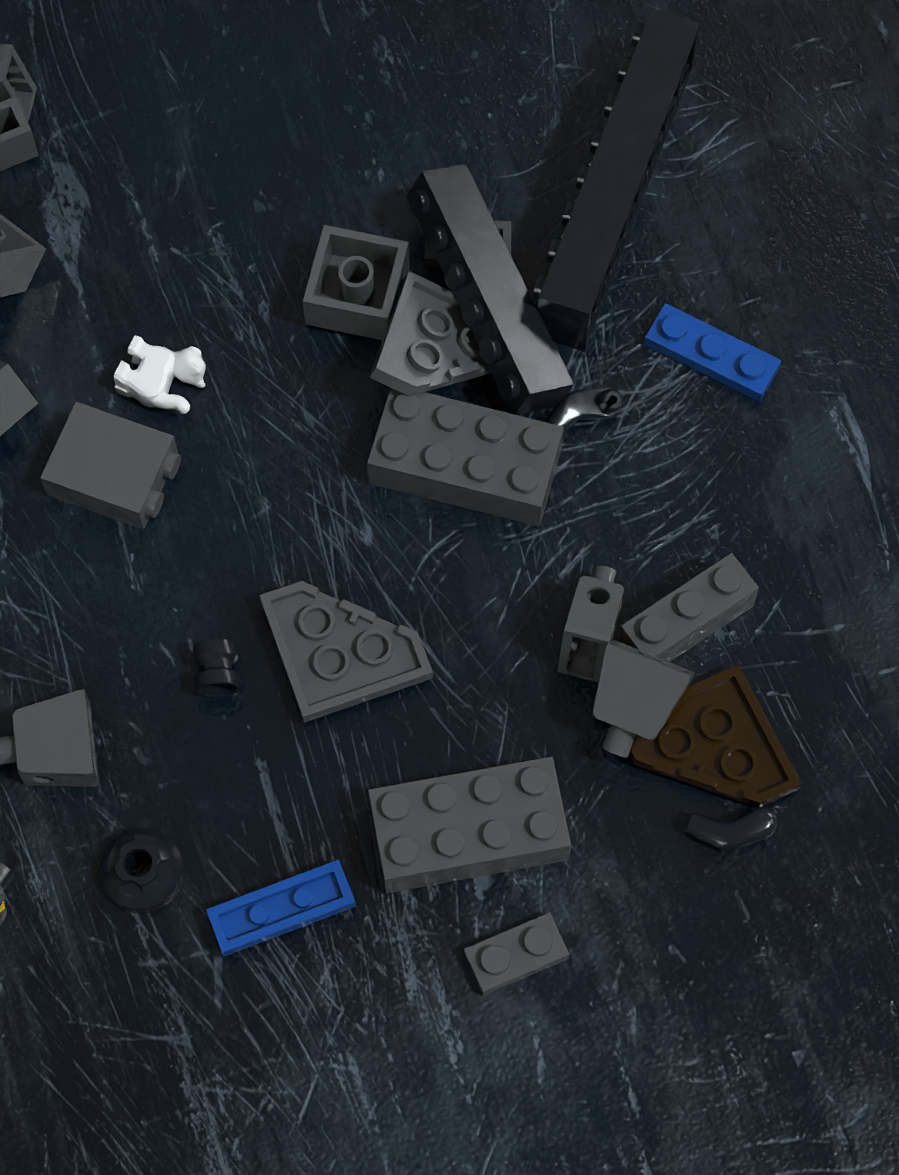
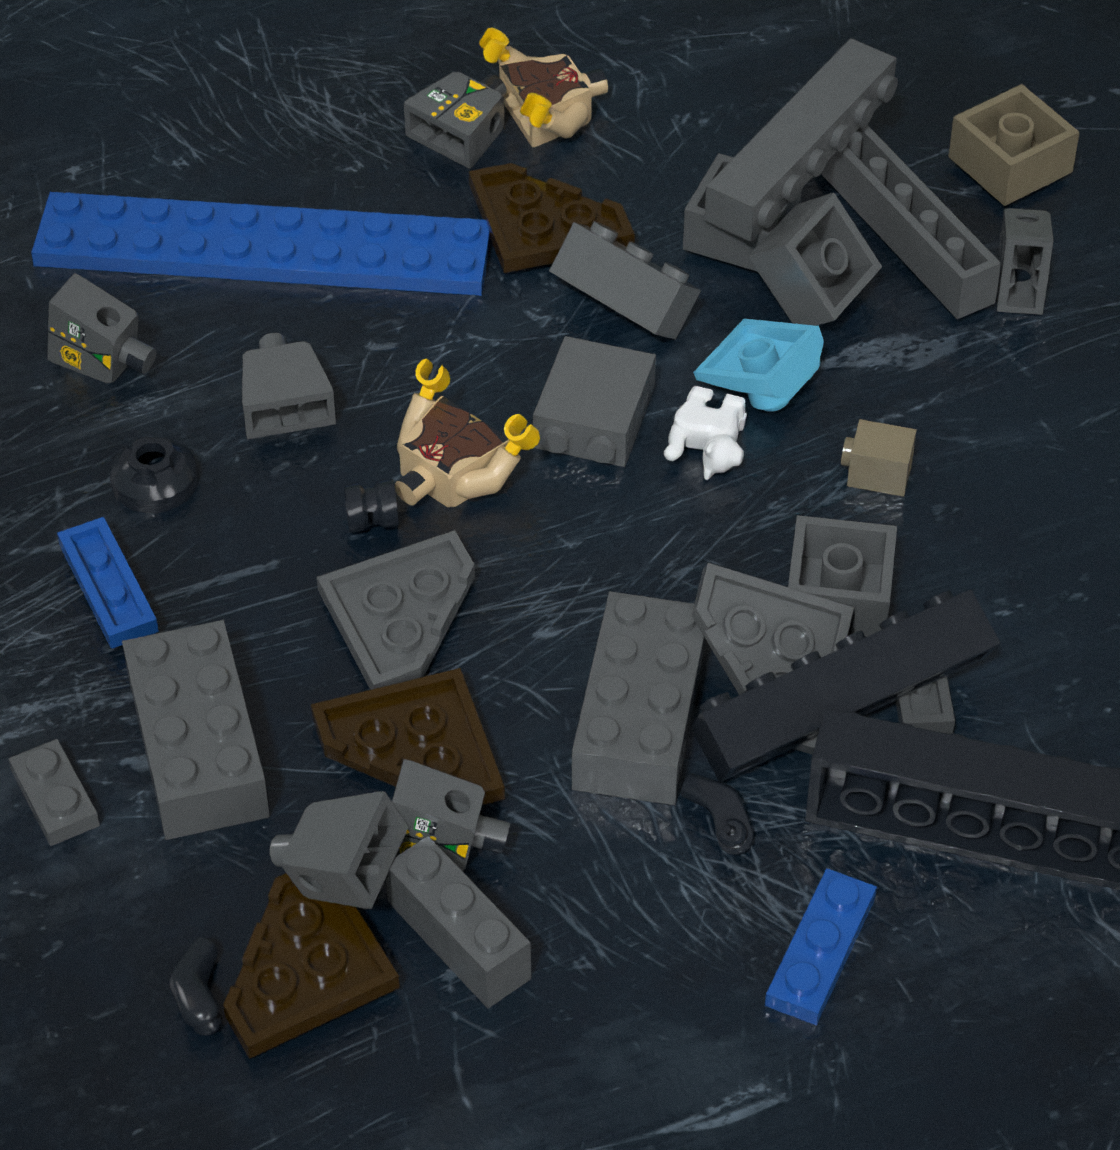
camera: 85 degrees right, 20 degrees down
(79, 318) = (764, 361): none -> medium azure slope
(159, 592) = (452, 451): none -> torso
(211, 237) = (879, 457): none -> dark tan brick
(488, 643) = (412, 720): none -> dark brown plate

